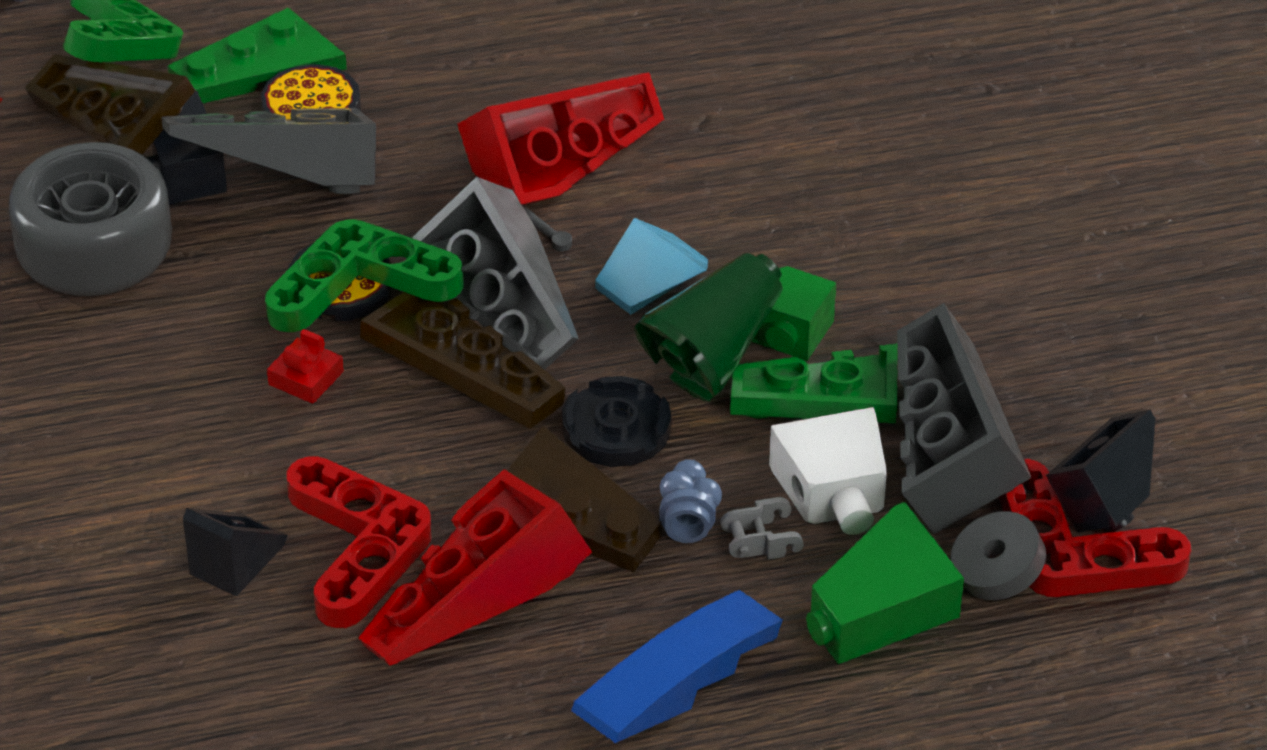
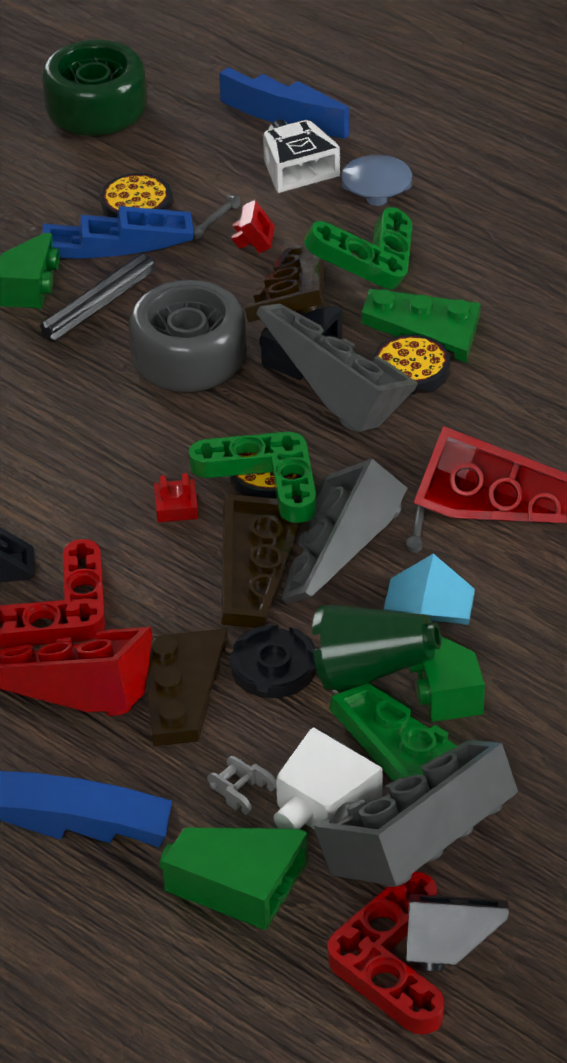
camera: 55 degrees right, 0 degrees up
(688, 502) = (223, 730): sand blue piece -> none
(1010, 572) = (323, 914): dark grey piece -> none

